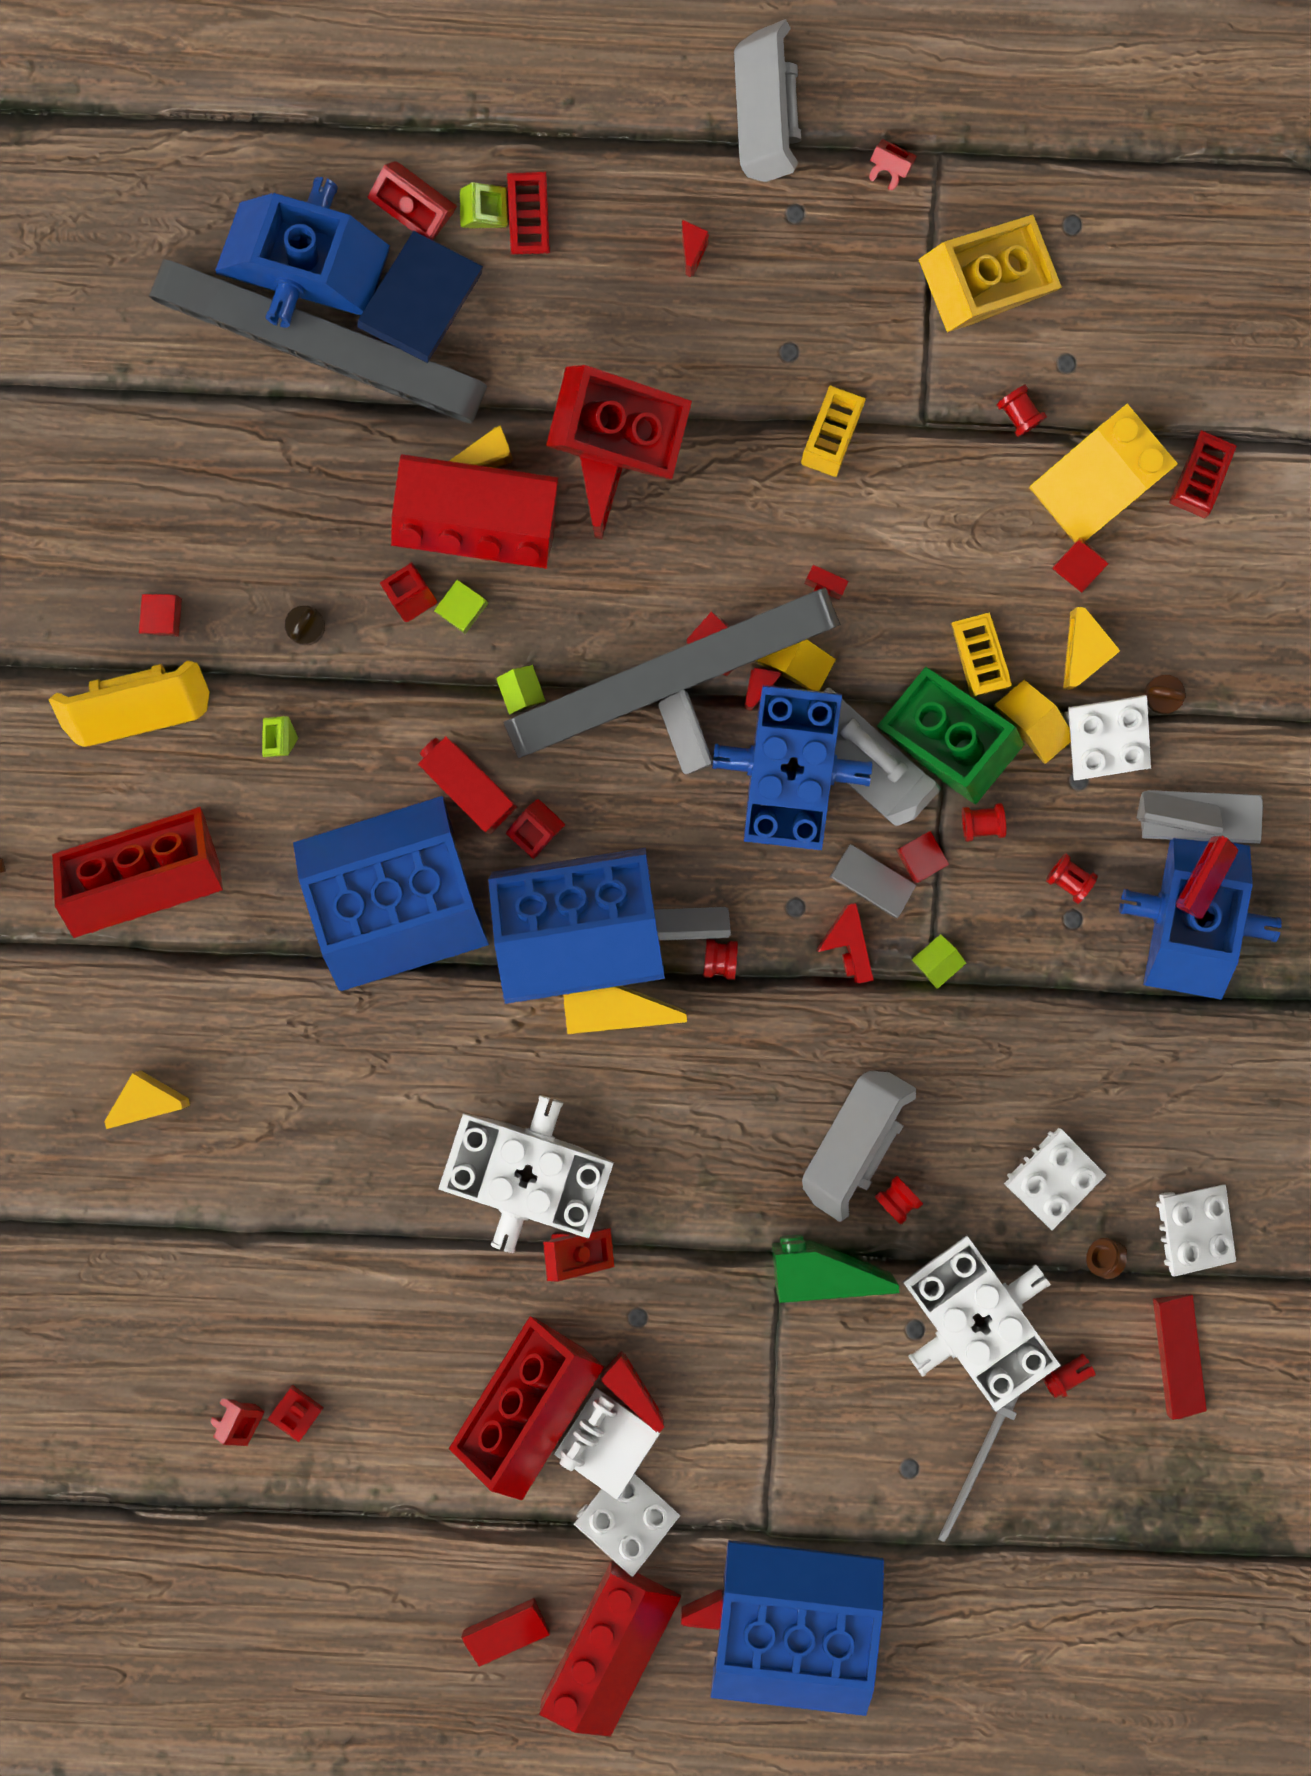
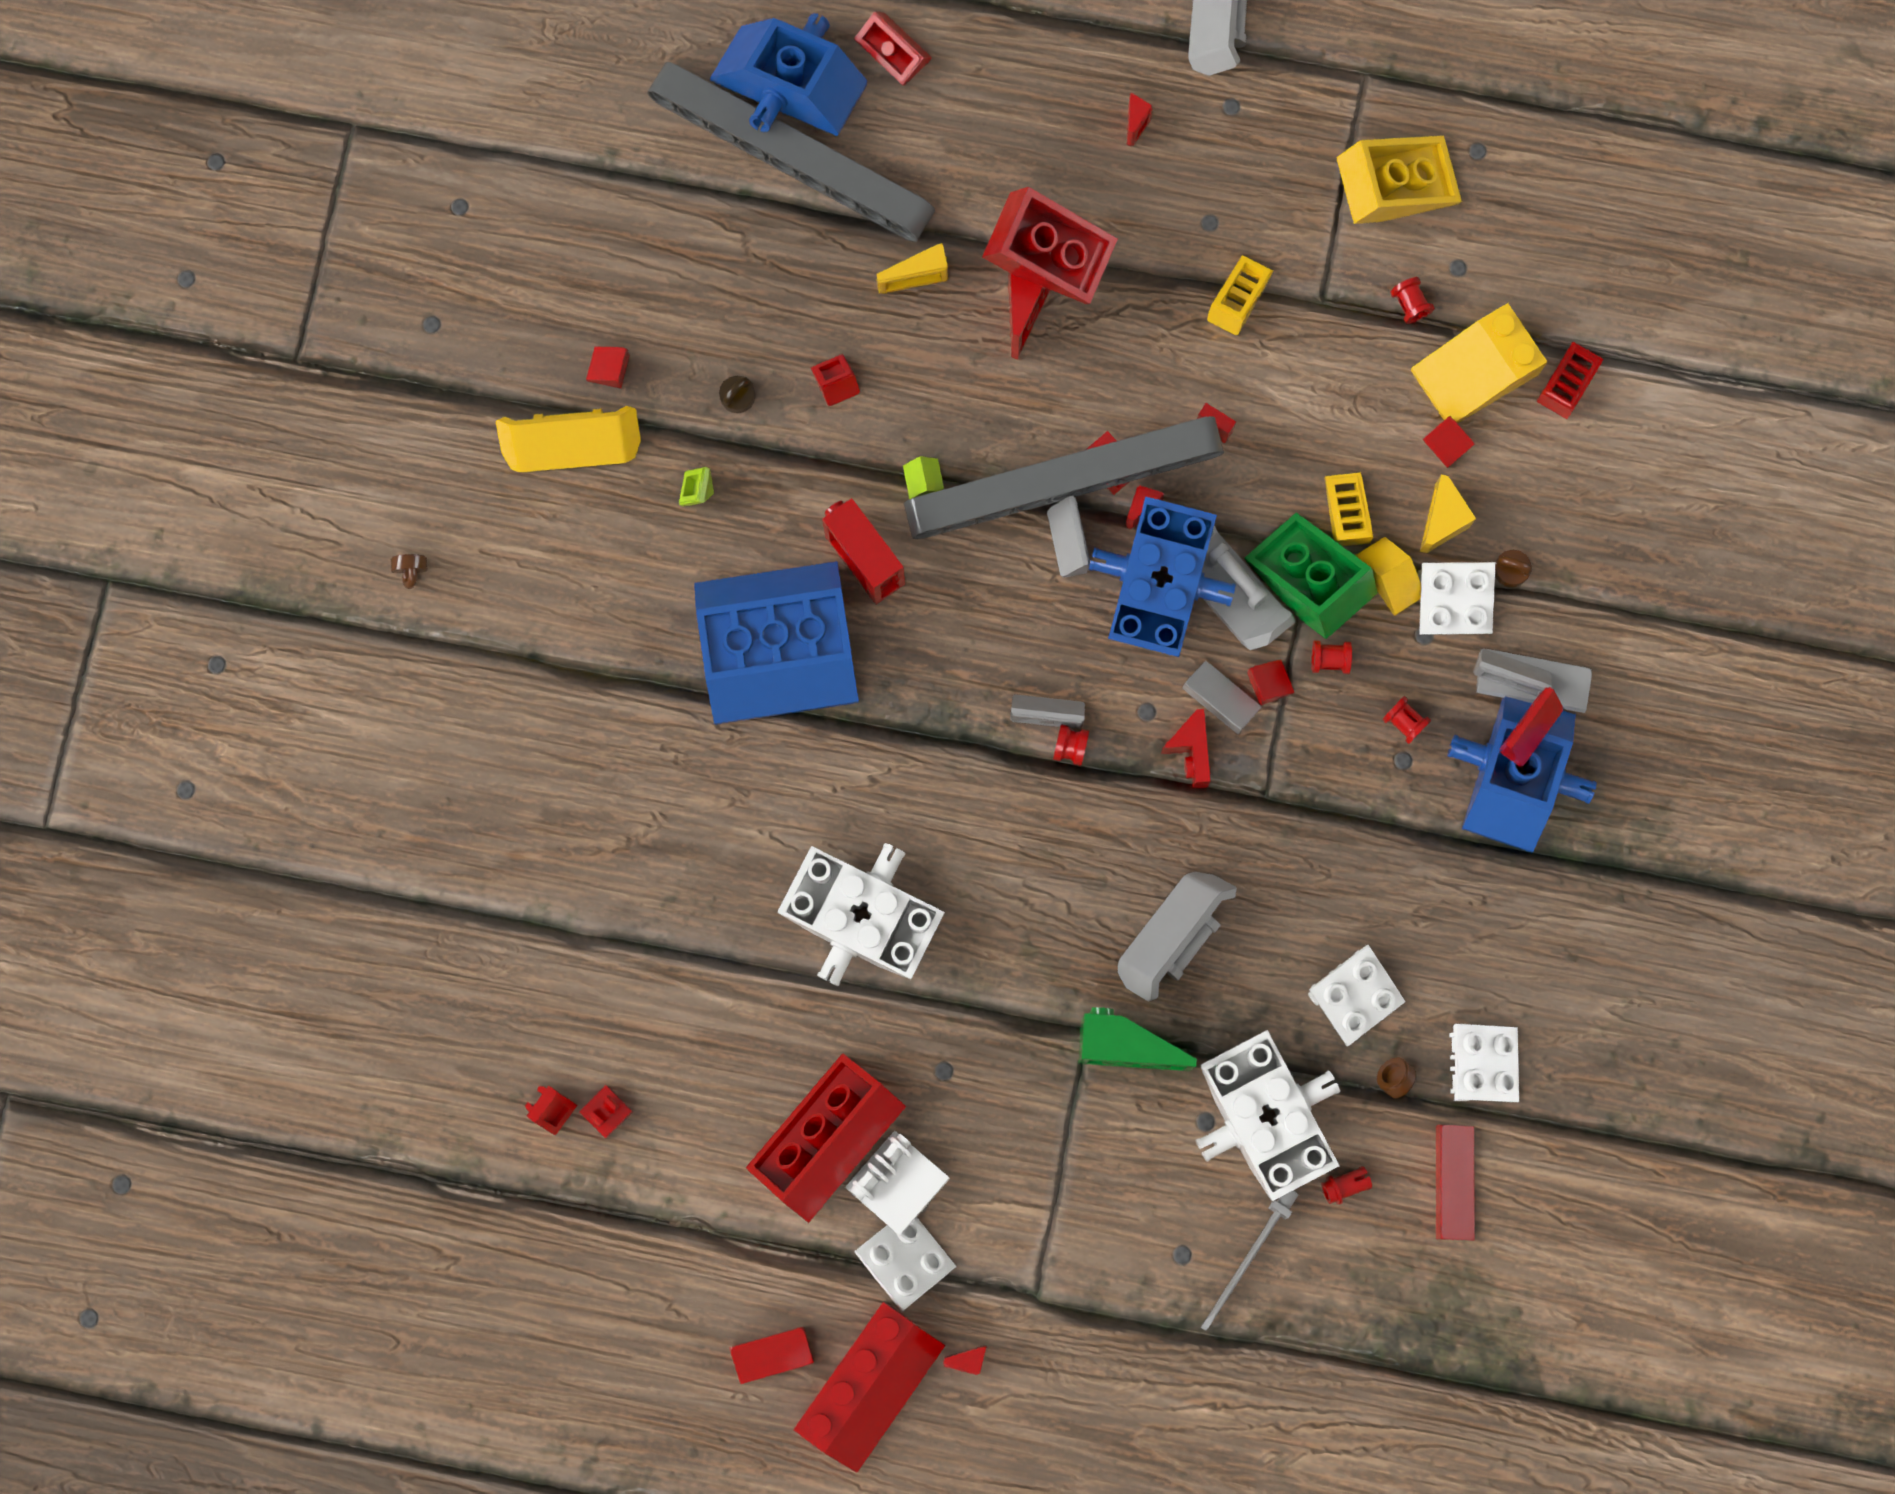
camera: 10 degrees right, 10 degrees down
(135, 872) = (546, 589): red slope -> none
(143, 1099) = (514, 796): yellow slope -> none
(420, 296) = (887, 125): dark blue tile -> none
(461, 606) = (881, 398): lime slope -> none
(474, 511) = (907, 312): red slope -> none
(483, 206) = (955, 60): lime slope -> none
(528, 179) = (1001, 43): red slope -> none
(535, 828) = (917, 604): red slope -> none
(574, 1255) = (898, 997): red slope -> none
(575, 925) = (943, 686): blue slope -> none
(617, 1009) = (963, 769): yellow slope -> none
(628, 1386) = (925, 1128): red slope -> none
(799, 1628) = (1054, 1392): blue slope -> none
(801, 664) = (1180, 487): yellow slope -> none
(894, 160) = (1324, 71): tile -> none
(898, 1200) = (1206, 992): red wheel -> none
(939, 961) = (1274, 779): lime slope -> none

